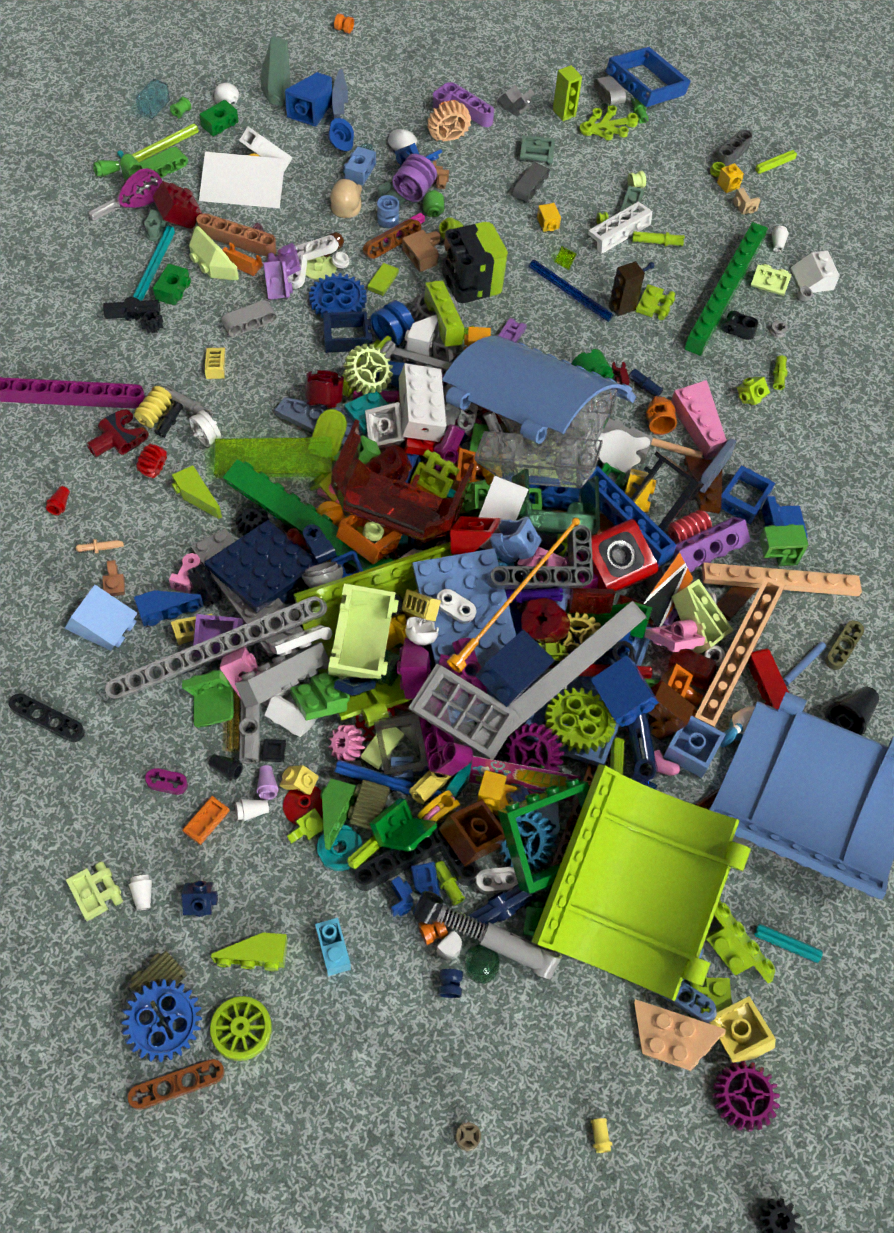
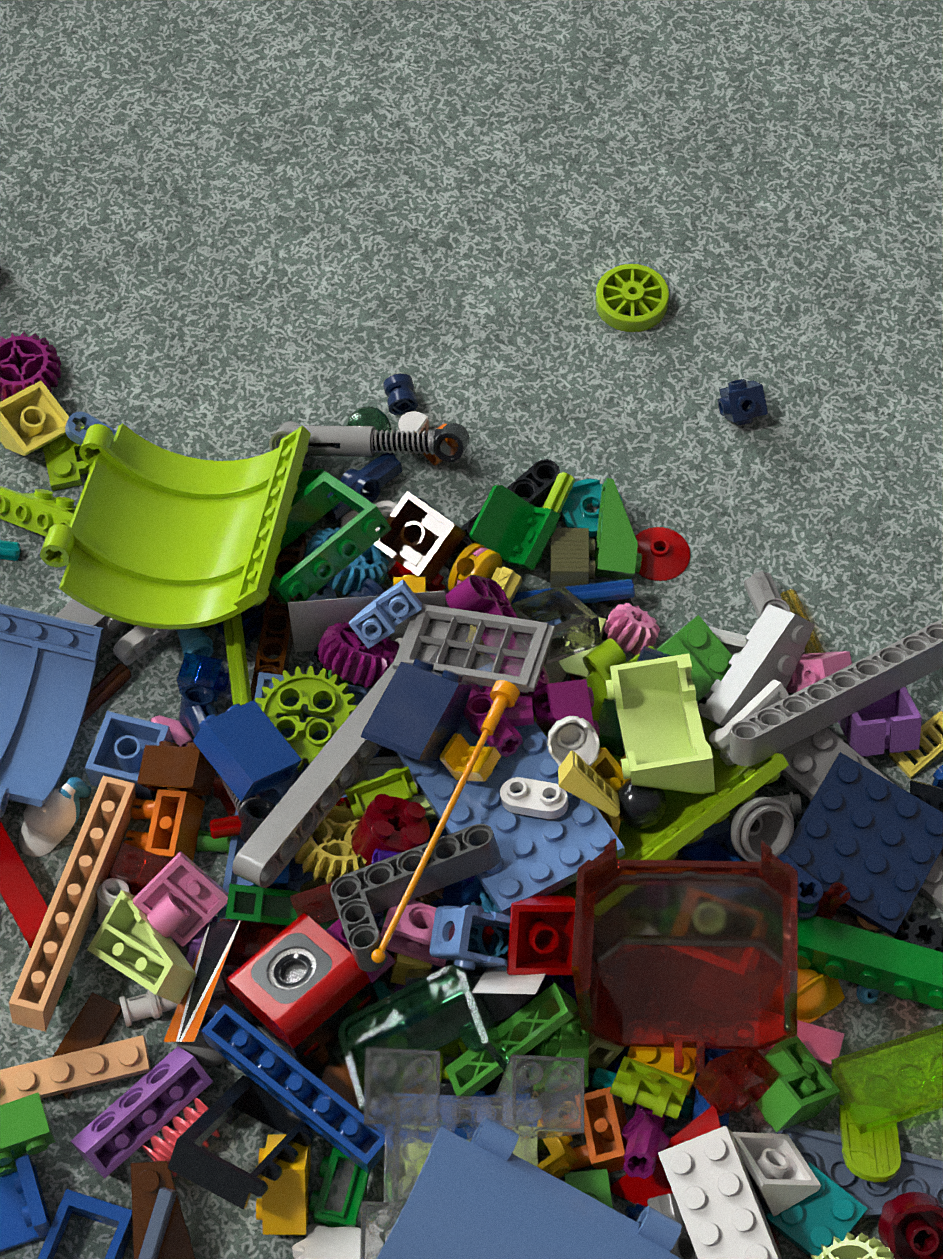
camera: 170 degrees right, 0 degrees up
(87, 893) = (879, 379): yellowish green plate -> none
(141, 891) = (818, 399): white cone -> none
(141, 1032) = (724, 271): blue gear -> none
(160, 967) = (750, 314): olive brick -> none
(165, 786) = (854, 531): magenta beam -> none
(175, 1080) = (679, 234): dark orange beam -> none
(206, 820) = (778, 496): orange plate -> none
(211, 698) = (844, 631): bright green bracket -> none
(228, 767) = (785, 566): black cone -> none
(249, 809) = (727, 523): white cone -> none
(260, 950) = (644, 370): lime slope -> none
(267, 785) = (719, 557): lavender cone -> none
(273, 750) = (730, 608): black tile -> none
(299, 778) = (681, 569): light yellow bracket -> none
(308, 825) = (648, 521): lime plate -> none
(323, 482) = (836, 1039): lime bracket -> none
(333, 946) = (554, 388): medium azure slope -> none
(403, 892) = (488, 469): blue bracket -> none
(425, 878) = (466, 499): blue tile -> none
(448, 883) = (423, 490): lime axle -> none
(471, 1133) = (335, 254): dark tan wheel -> none
(489, 643) = (457, 754): none -> yellow bracket
(517, 752) = (385, 613): none -> light blue slope
(601, 1135) = (184, 291): light yellow pin -> none
(674, 1036) = (115, 401): light nougat wing -> none

